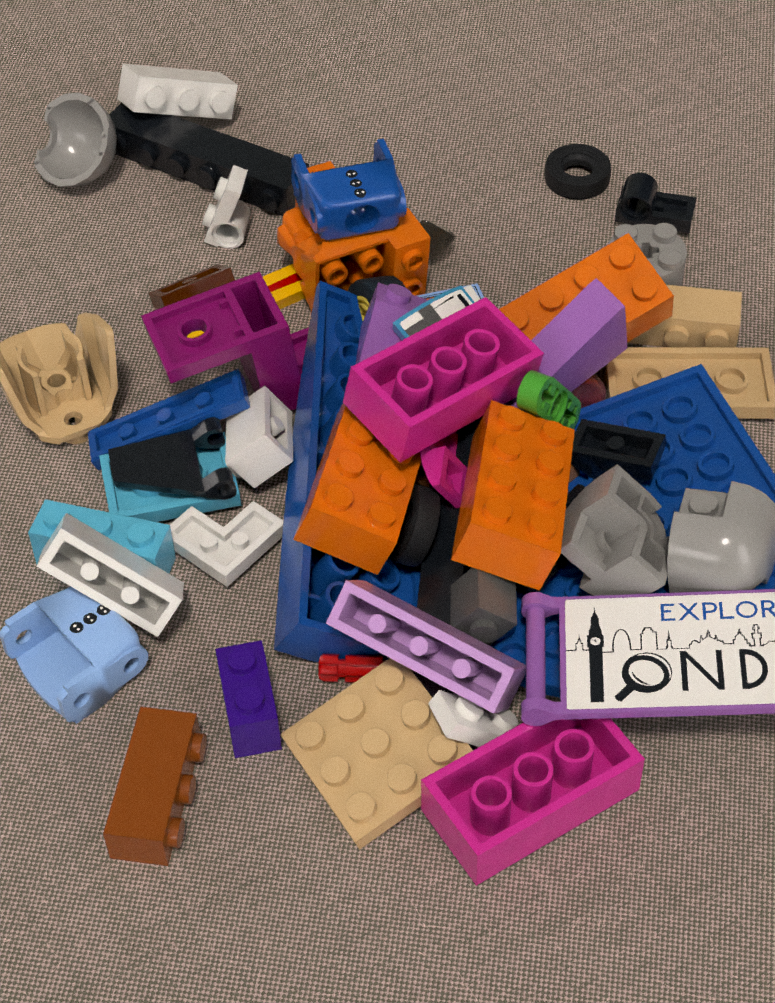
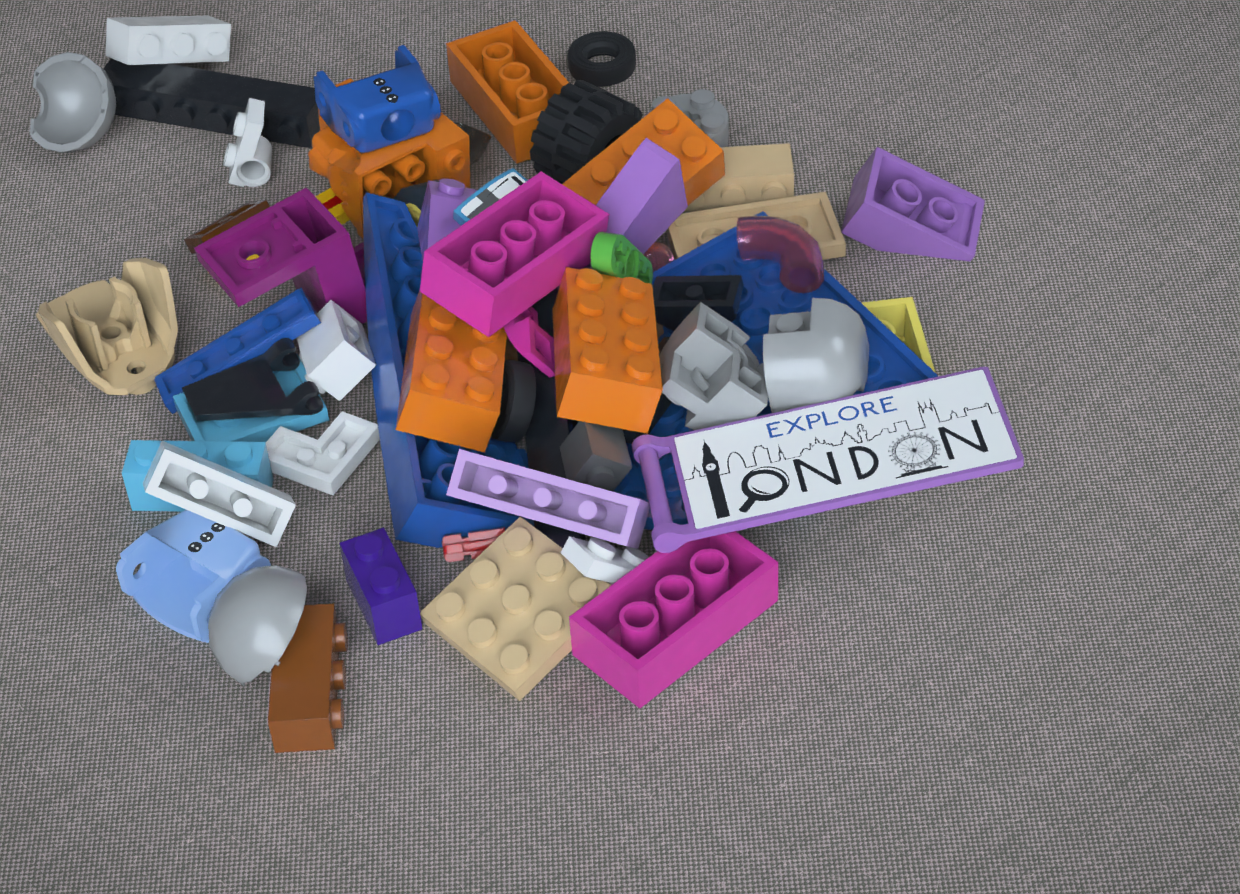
camera: 10 degrees left, 5 degrees down
(116, 720) = (256, 620): none -> light grey cylinder
(489, 194) = (505, 83): none -> orange brick
(539, 246) = (578, 128): none -> black wheel
(643, 204) = (673, 76): black plate -> none
(718, 408) = (787, 245): none -> clear pink cylinder

